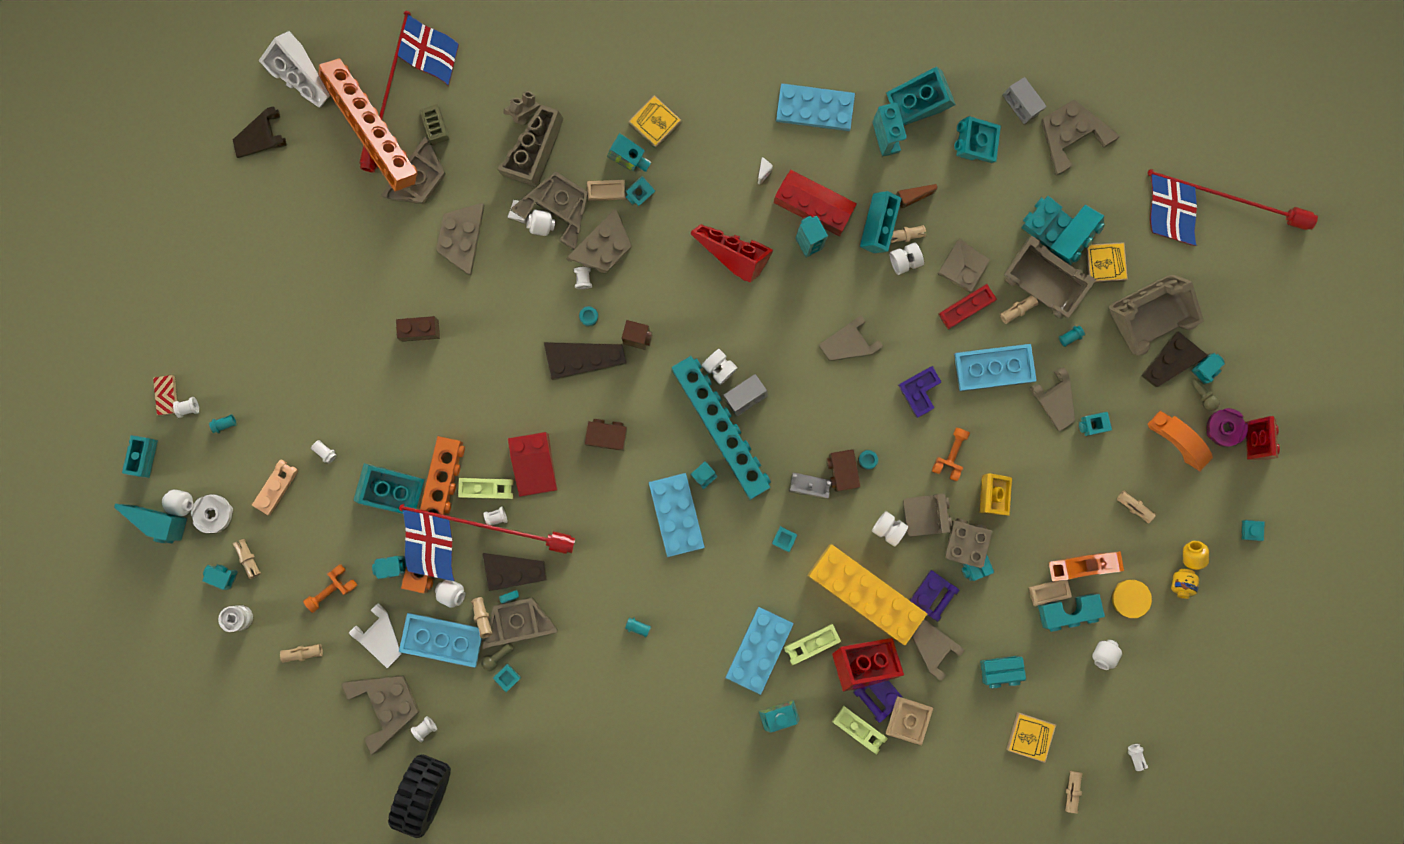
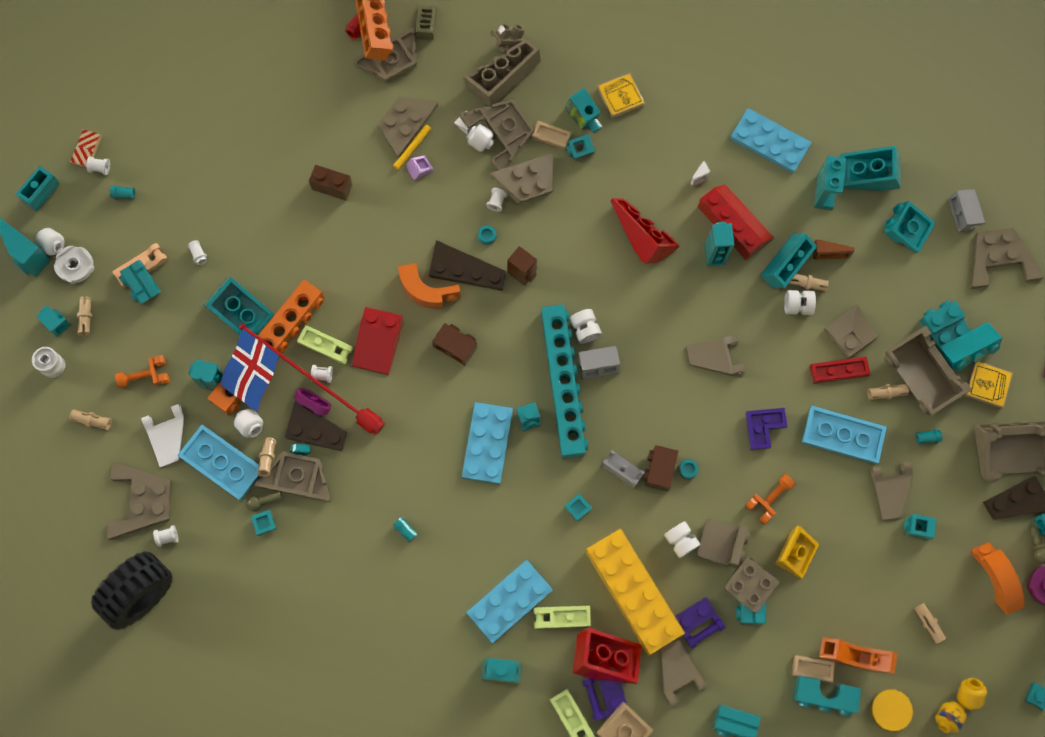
camera: 25 degrees right, 10 degrees down
(283, 505) = (139, 281): none -> teal brick
(478, 259) = (413, 145): none -> yellow bar
(494, 276) = (419, 167): none -> lavender slope
(499, 547) = (312, 401): none -> magenta plate
(551, 400) = (422, 293): none -> orange arch

